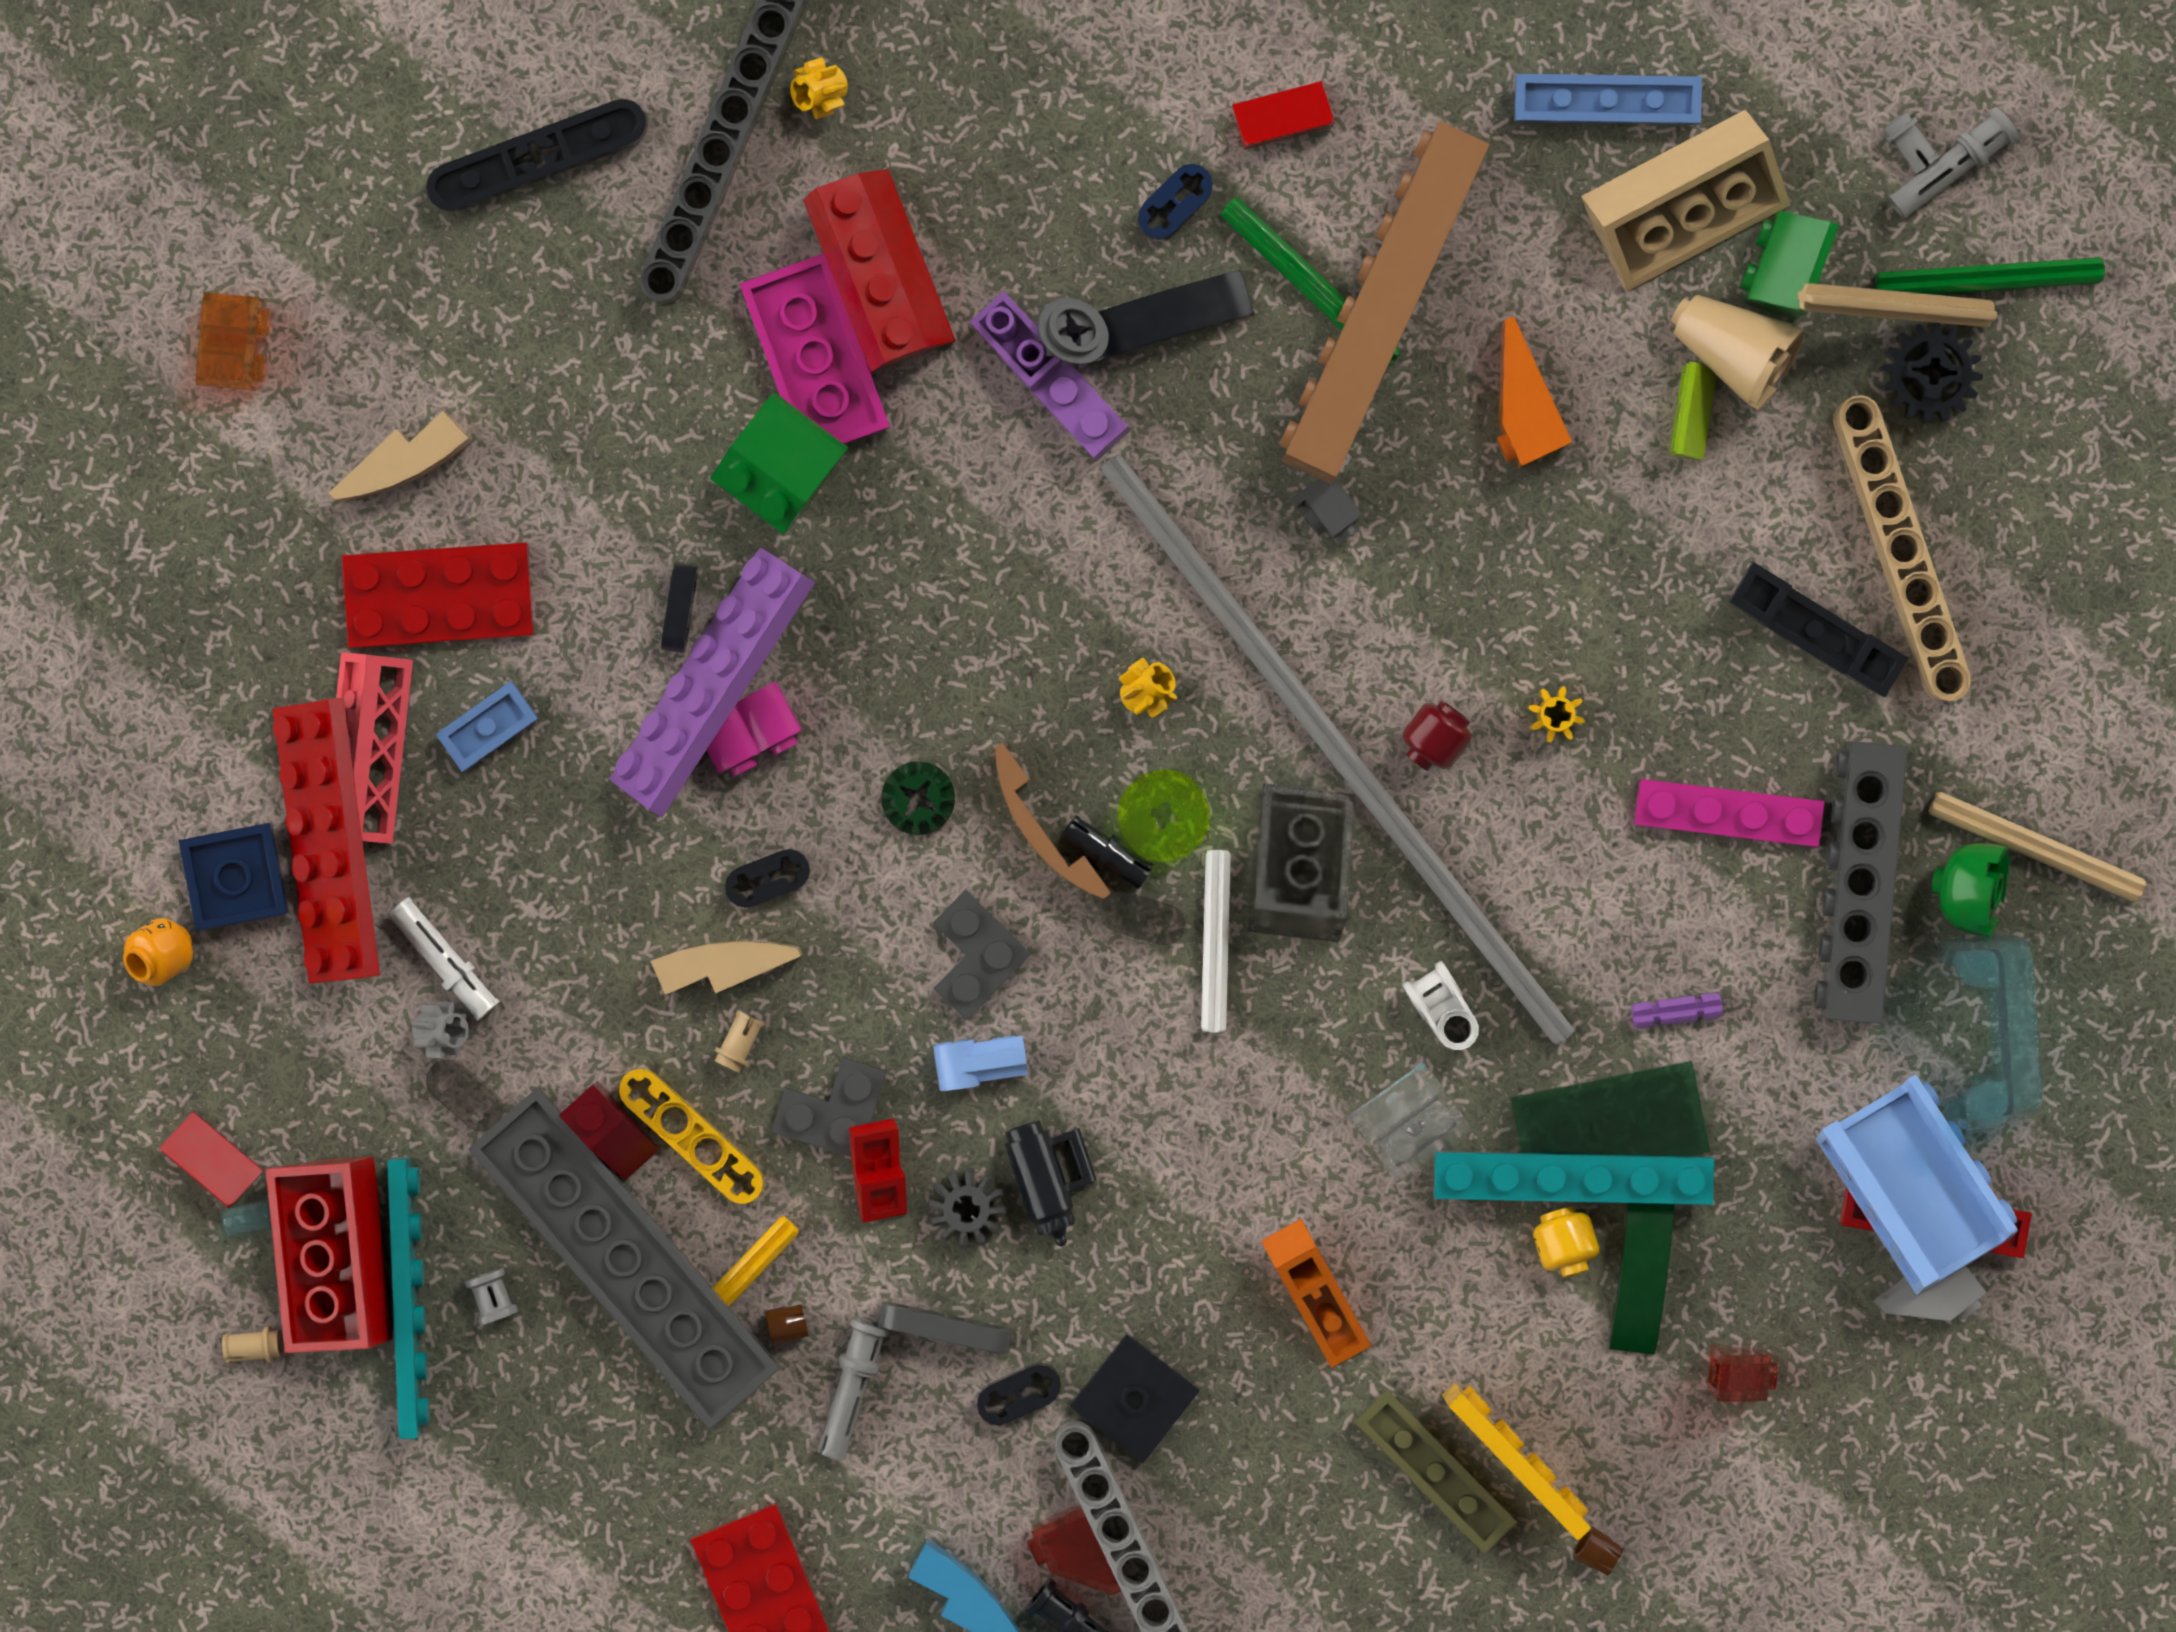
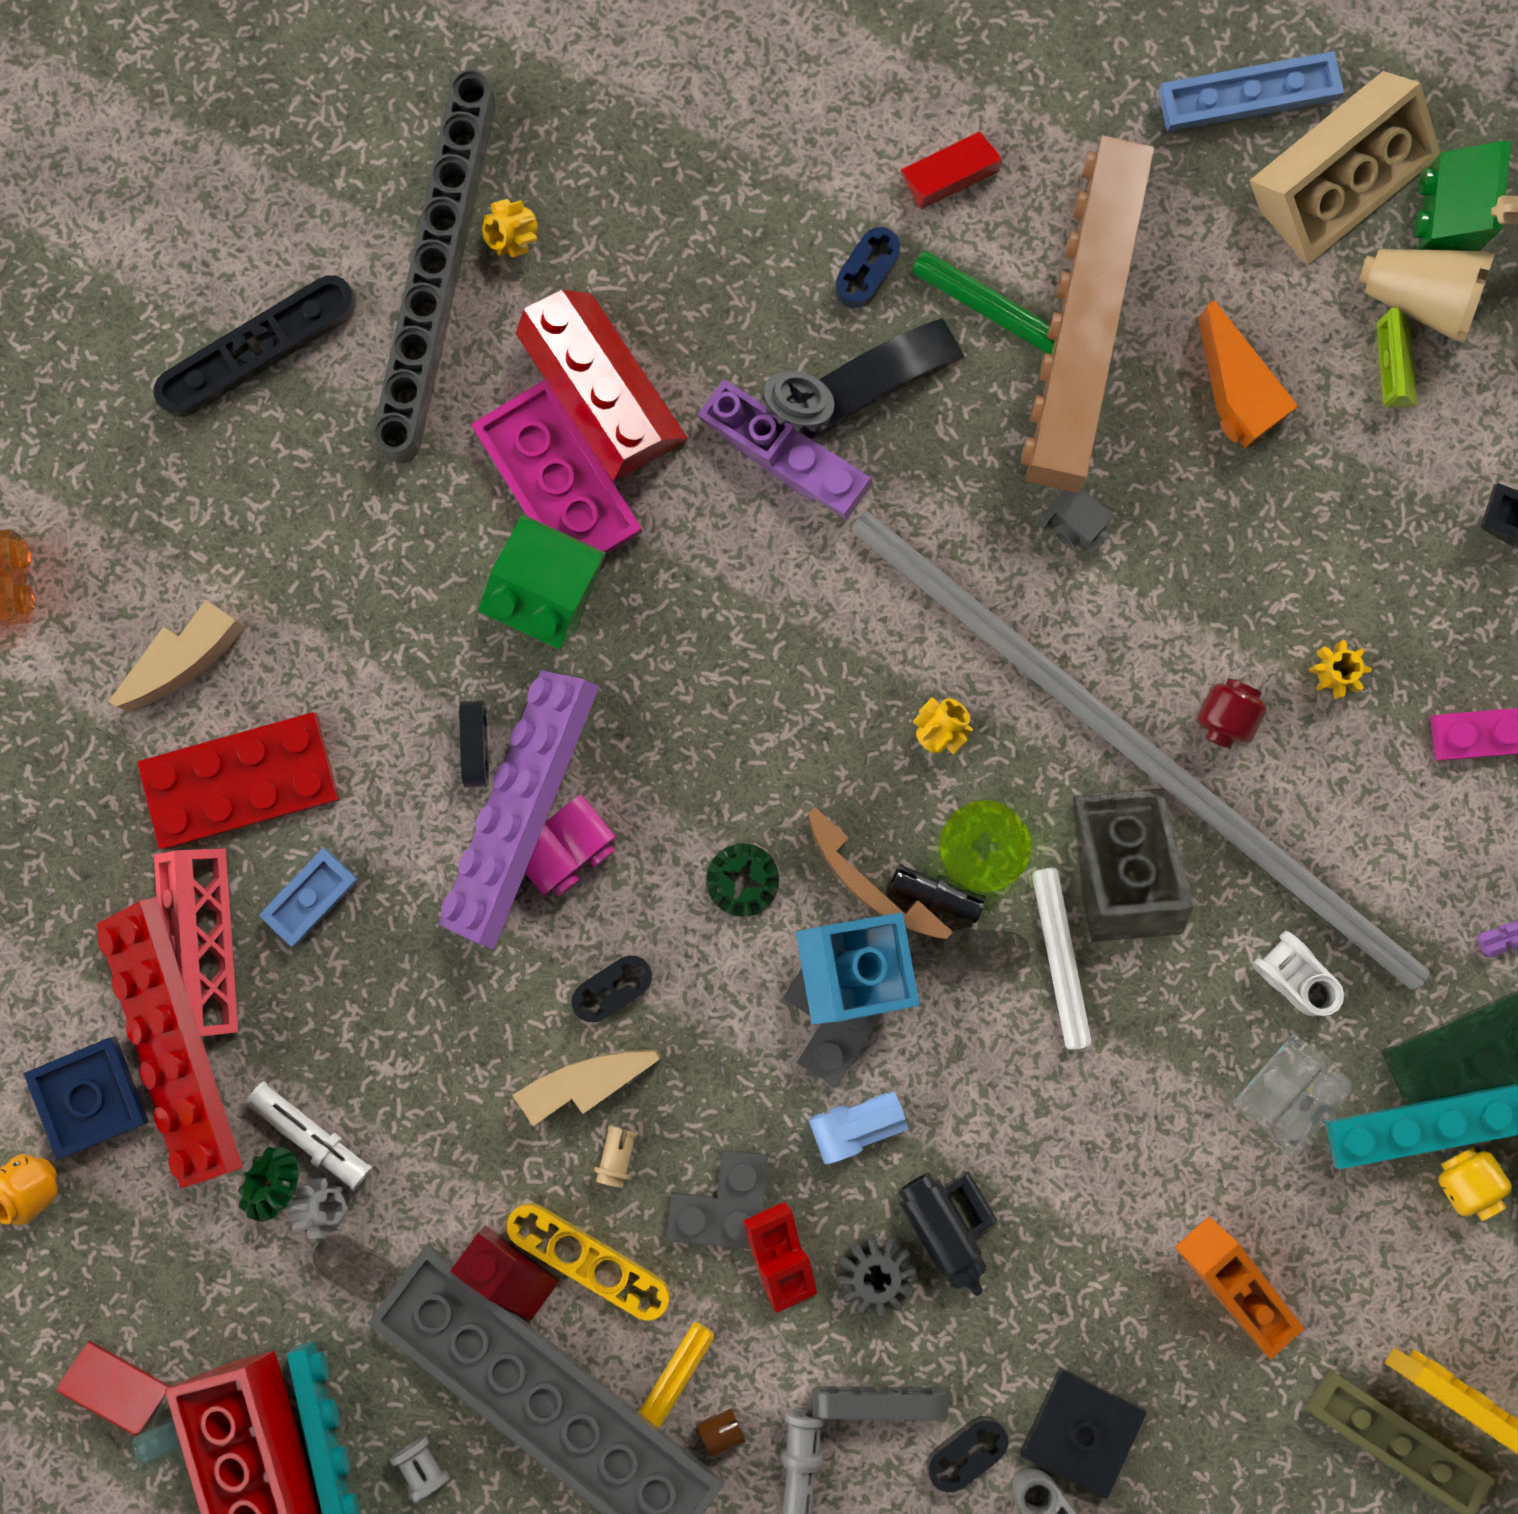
camera: 15 degrees left, 5 degrees down
(394, 1014) = (267, 1202): none -> dark green gear
(1010, 909) = (857, 968): none -> dark azure slope

